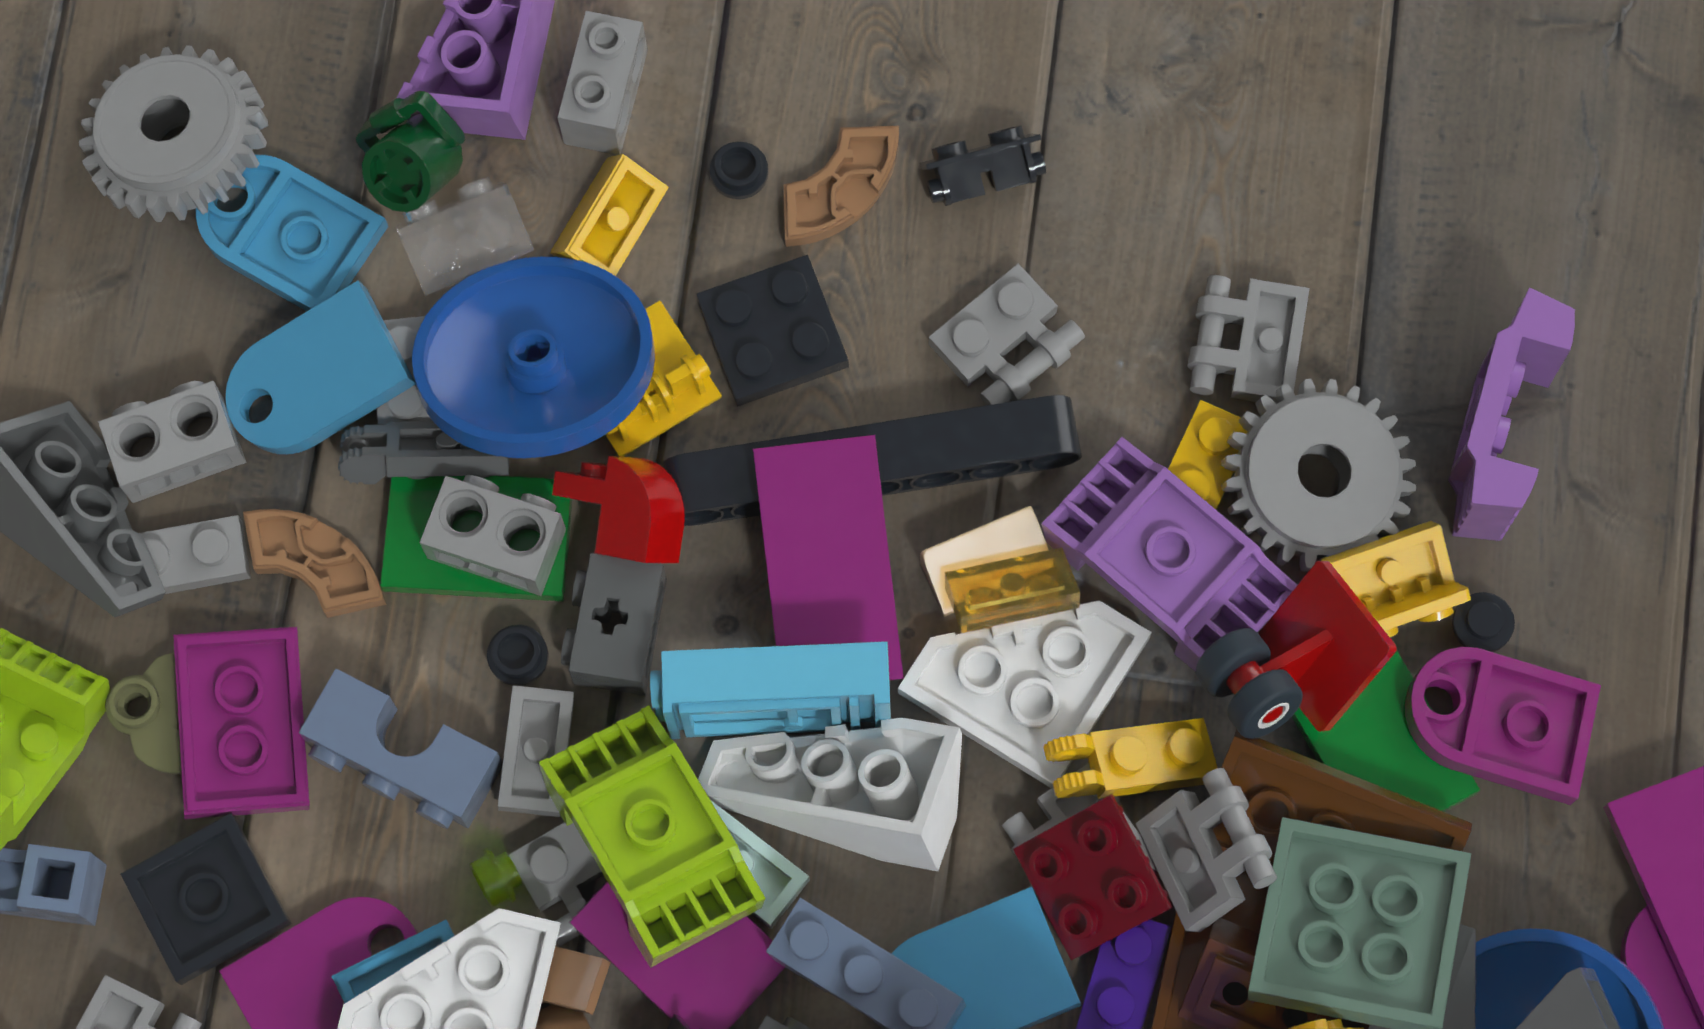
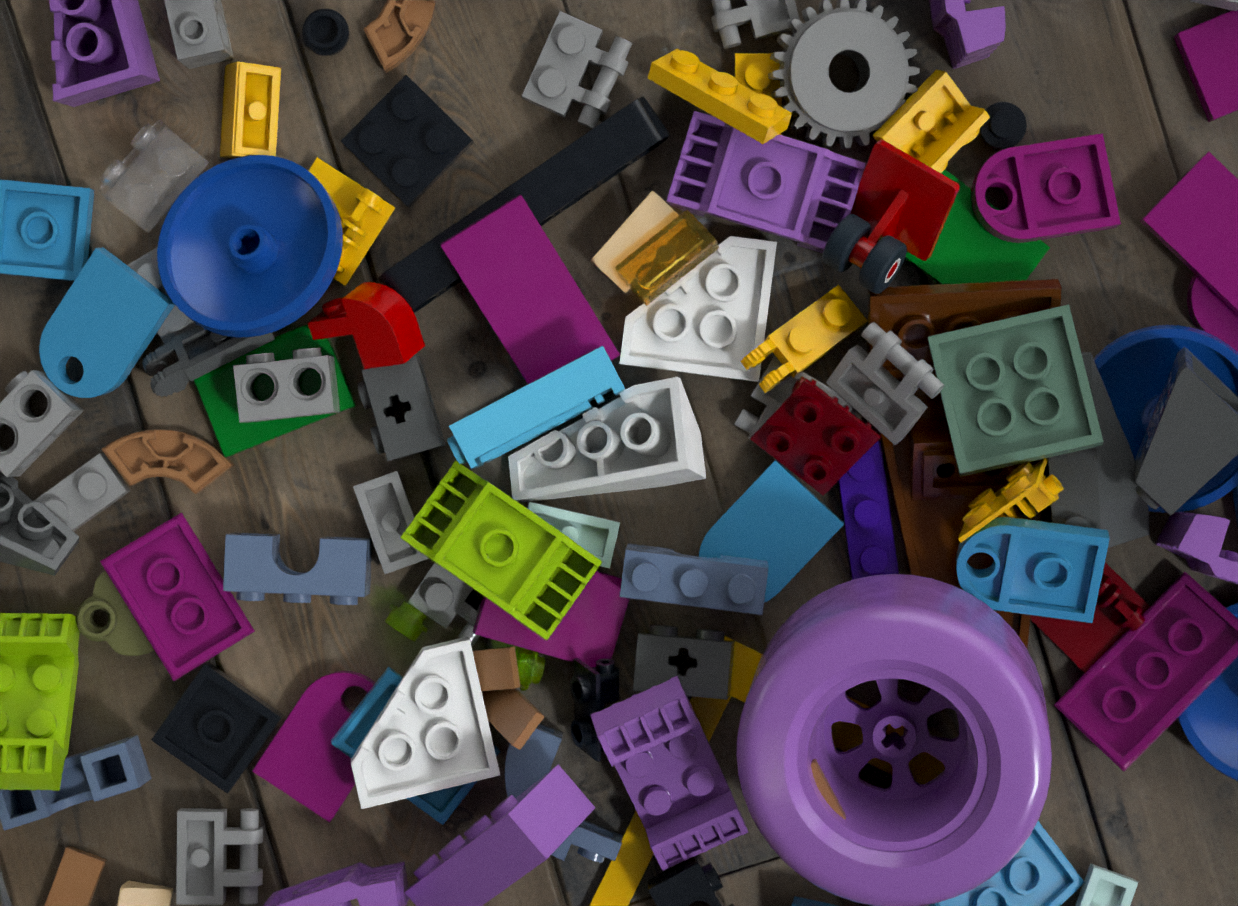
camera: 30 degrees left, 15 degrees up
(414, 156) = (88, 136): dark green piece -> none
(517, 655) = (344, 460): black plate -> none
(614, 1001) = (529, 667): none -> clear neon green plate
(1160, 432) = (720, 95): none -> yellow plate

